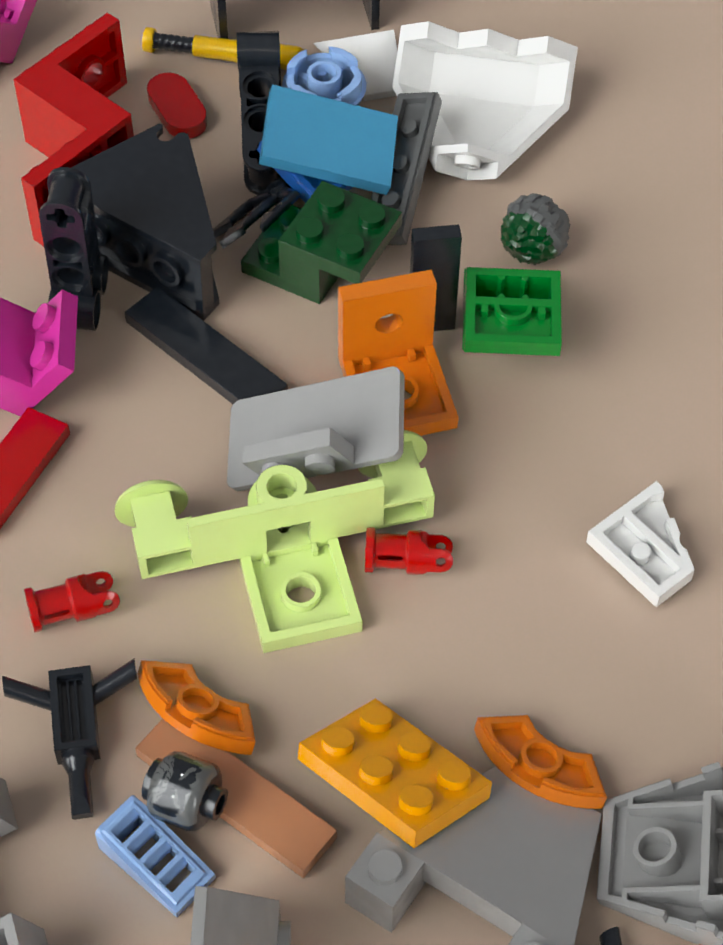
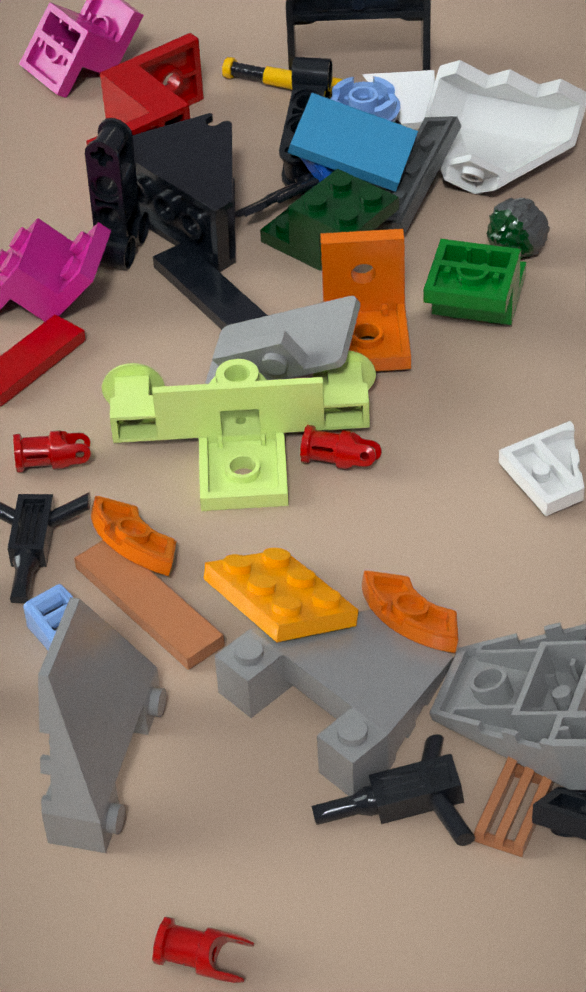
camera: 15 degrees right, 10 degrees down
(176, 104) = (243, 115): red tile -> none
(184, 791) = (104, 585): head -> none
(439, 250) = (415, 217): black tile -> none

